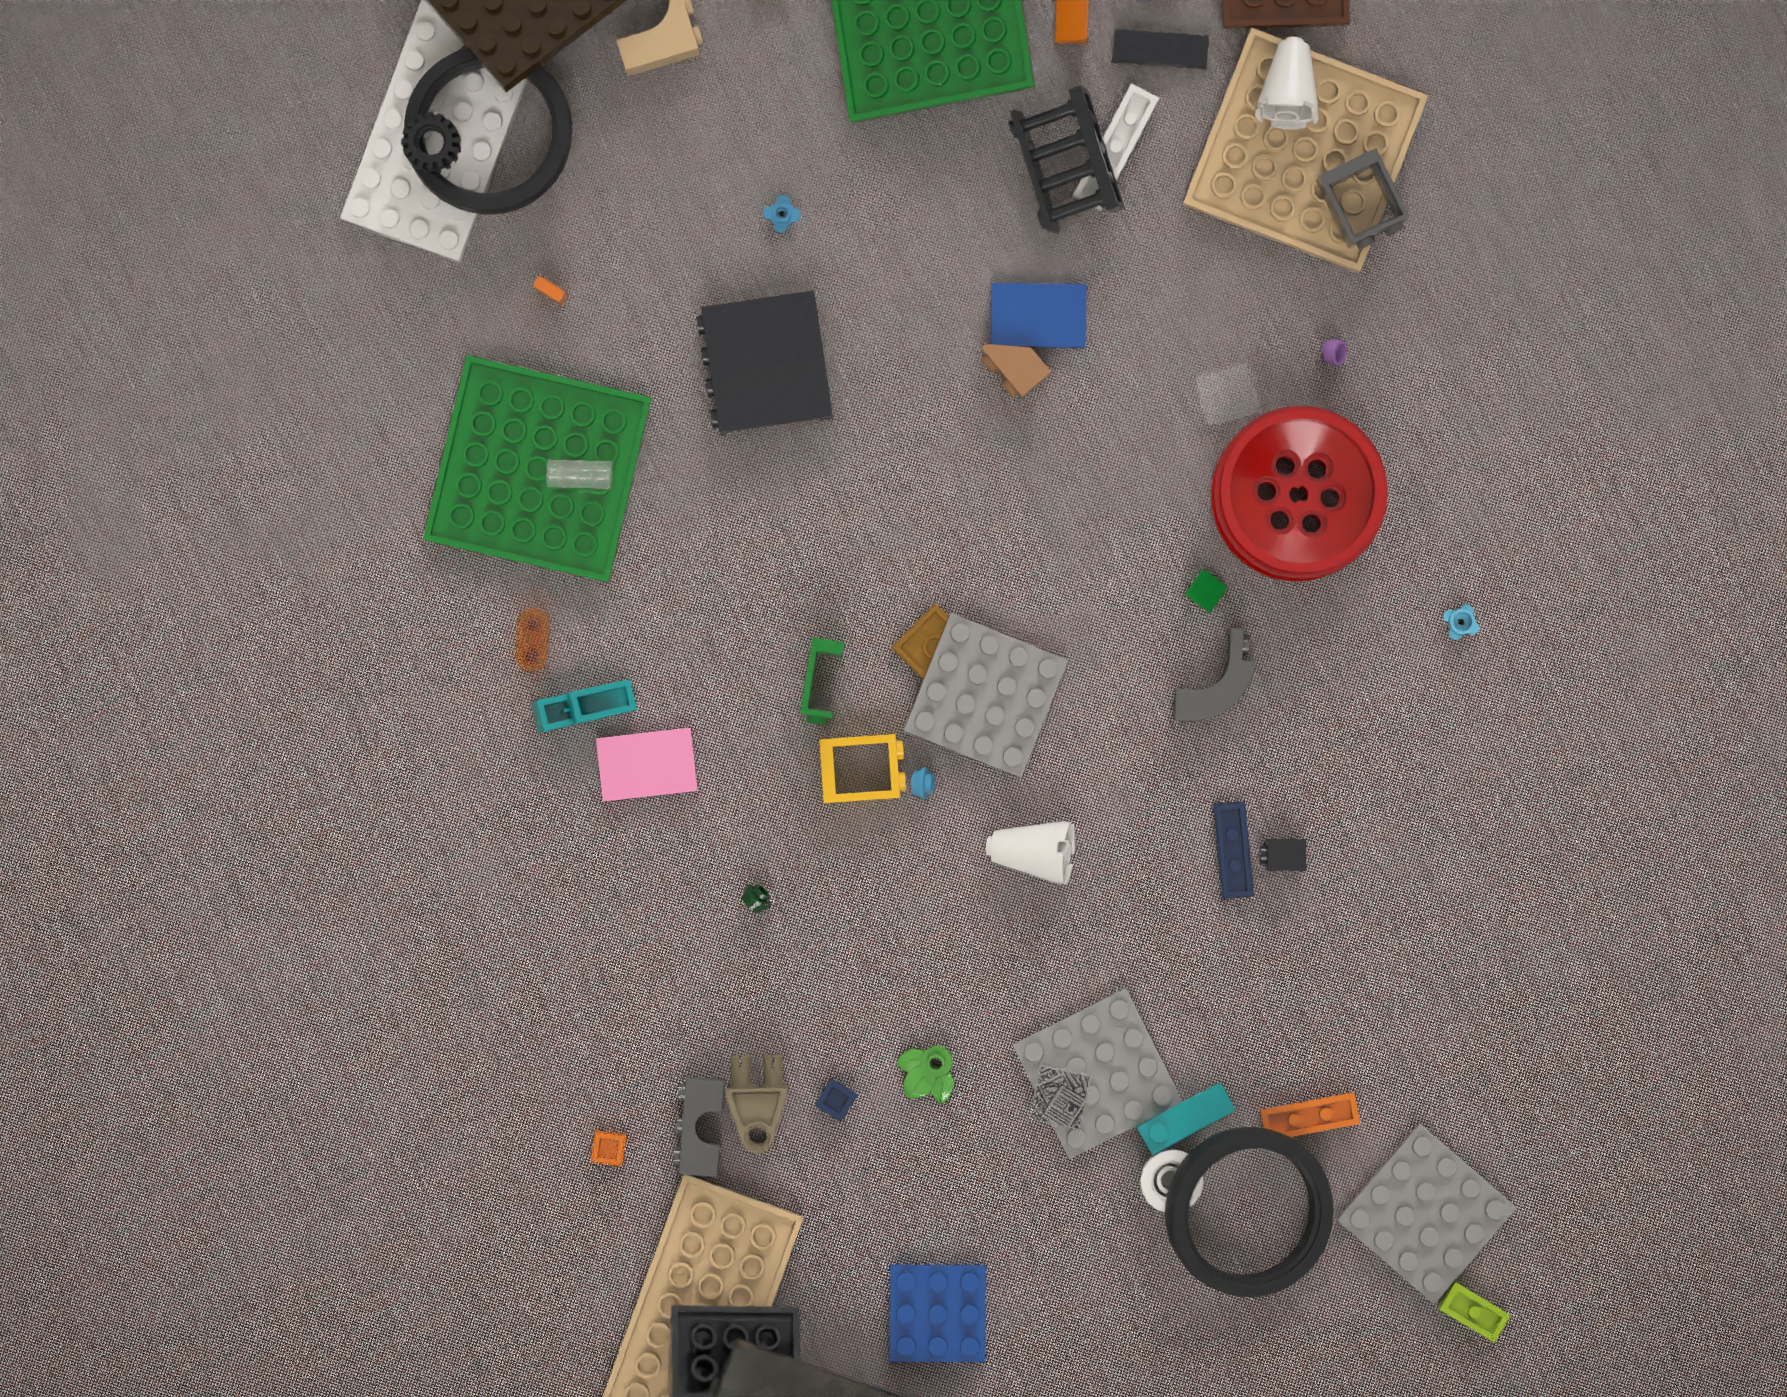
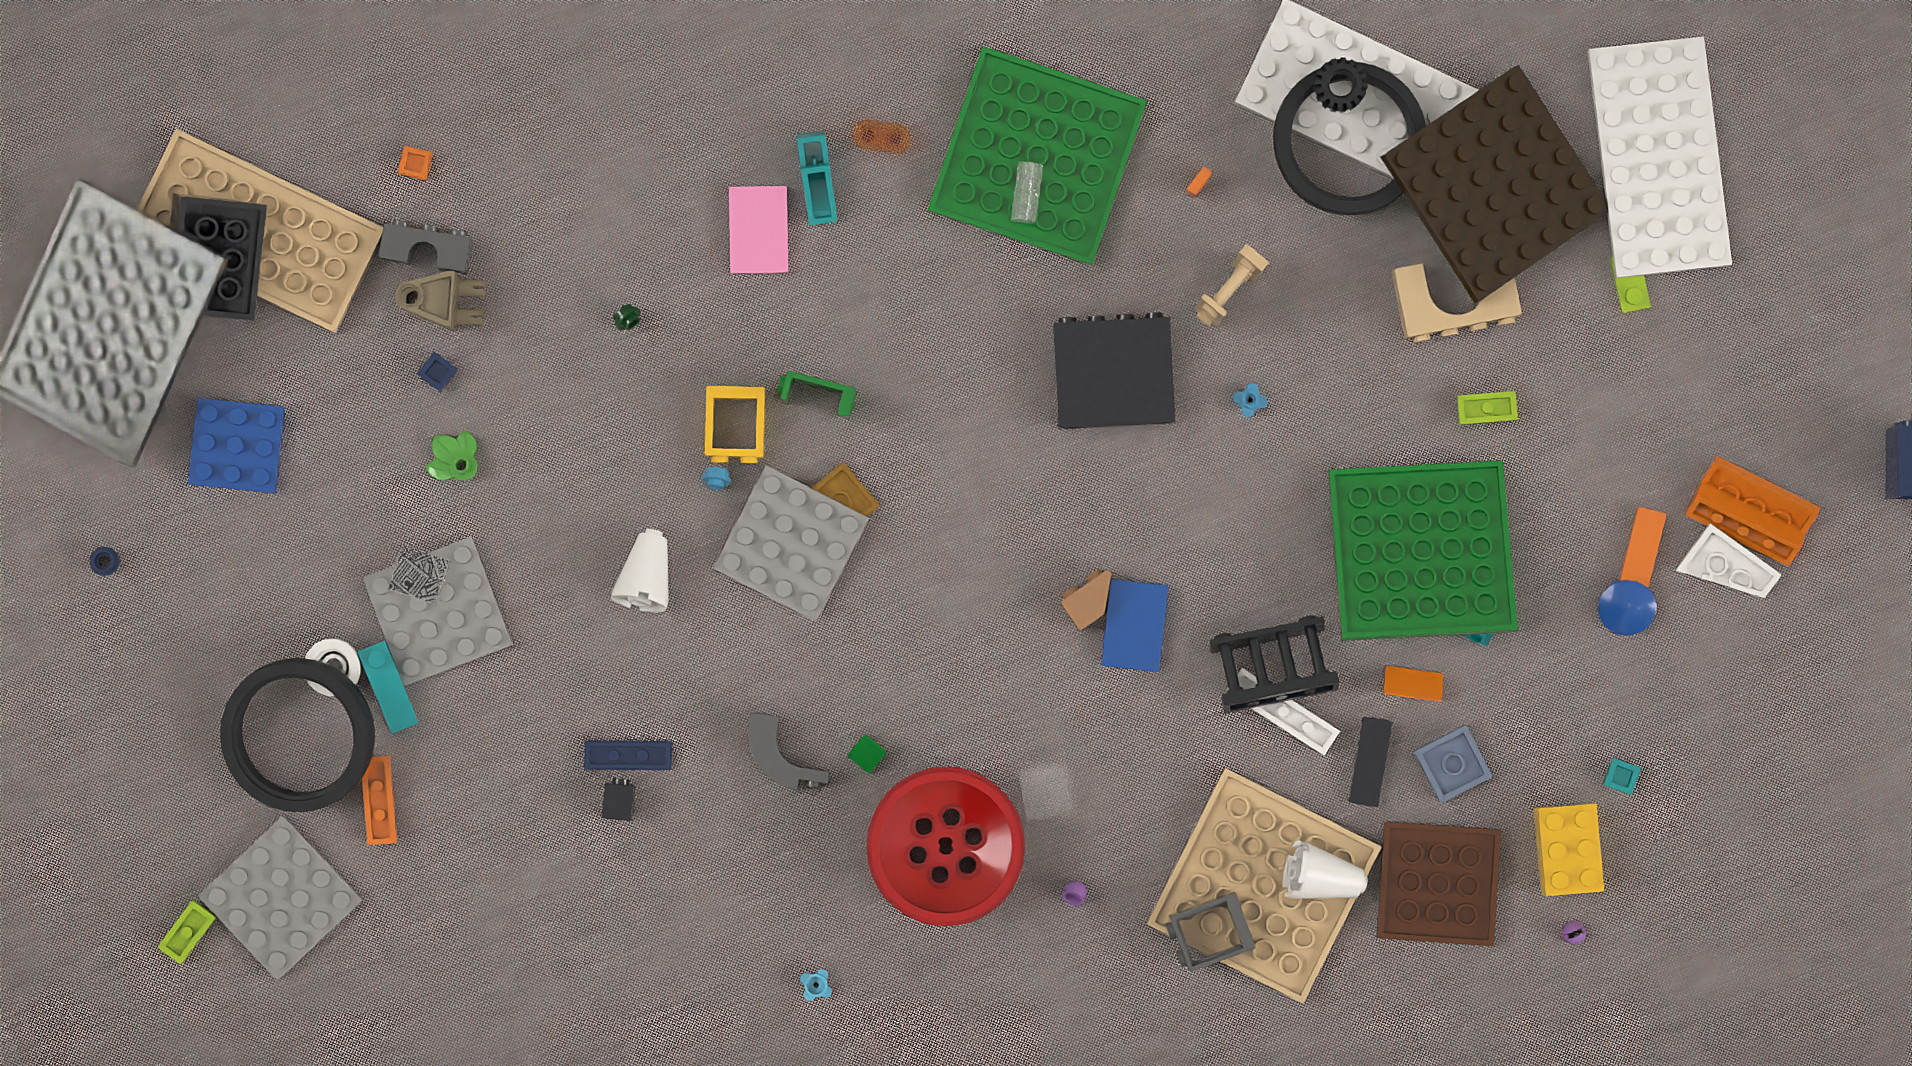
camera: 90 degrees right, 0 degrees up
(639, 228) = (1247, 267): none -> tan fence

